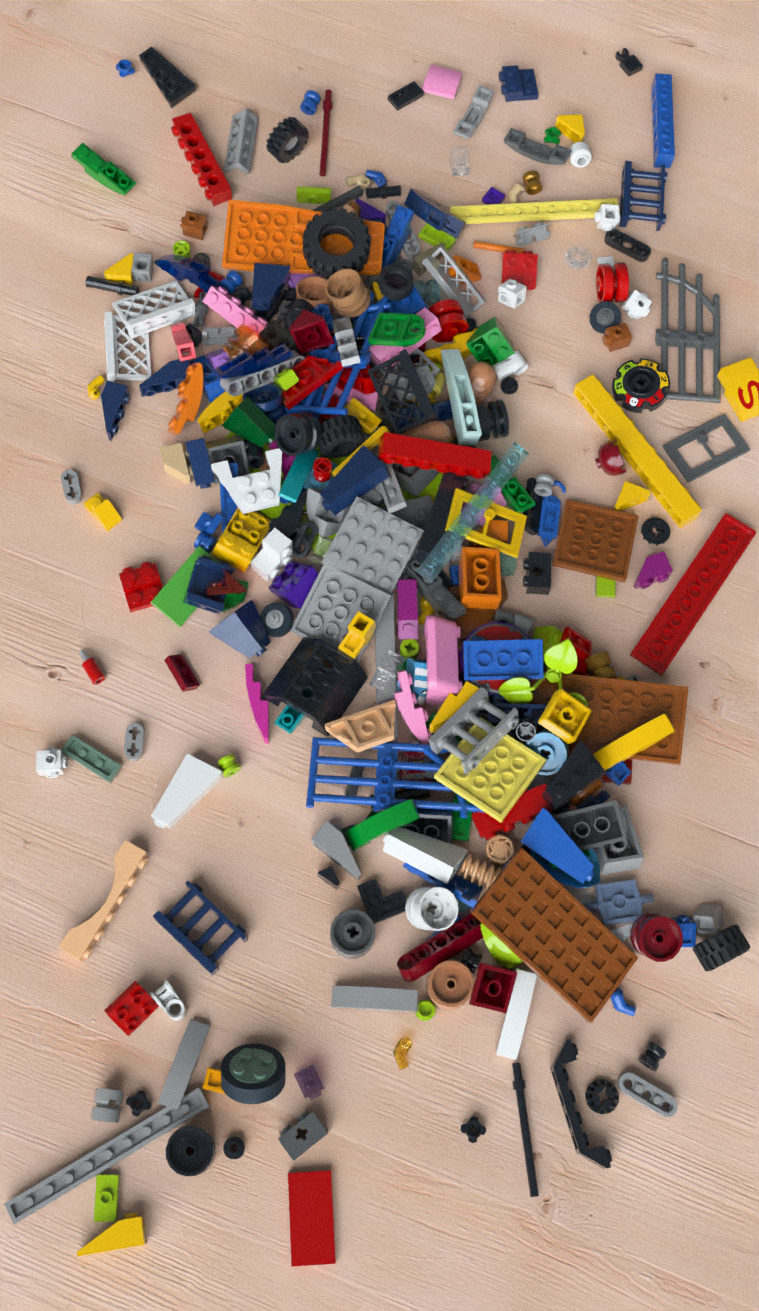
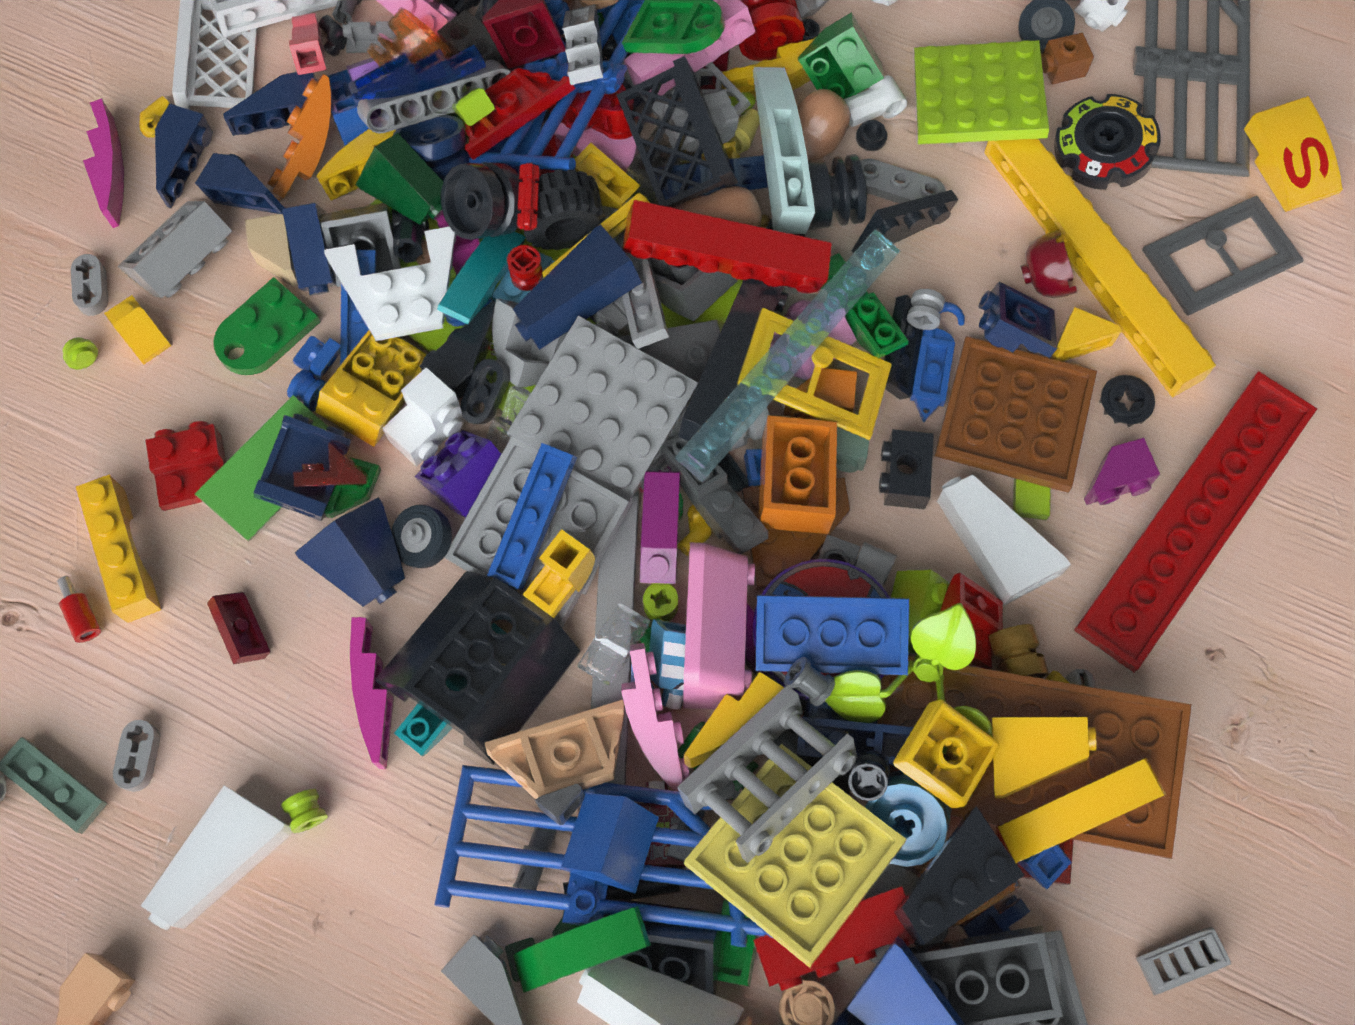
camera: 10 degrees right, 0 degrees up
(72, 419) = (107, 166): none -> dark pink slope
(72, 526) = (79, 353): none -> lime plate
(111, 633) = (122, 571): none -> yellow arch
(119, 464) = (176, 249): none -> light grey slope
(149, 426) = (231, 183): none -> dark blue slope
(174, 507) = (265, 328): none -> green plate
(324, 431) = (528, 196): none -> red axle
(339, 605) = (532, 516): none -> blue plate
(368, 751) = (561, 803): none -> flat silver slope
(395, 768) = (610, 841): none -> blue slope
(493, 683) = (809, 681): none -> dark grey bush
(531, 434) = (909, 217): none -> black wing
(533, 418) = (883, 182): none -> light grey plate
(569, 359) = (980, 92): none -> lime plate
(588, 609) = (999, 540): none -> white slope
(594, 488) = (1017, 319): none -> dark blue plate
(611, 713) = (1037, 749): none -> yellow slope
(703, 808) = (1212, 946): none -> light grey slope

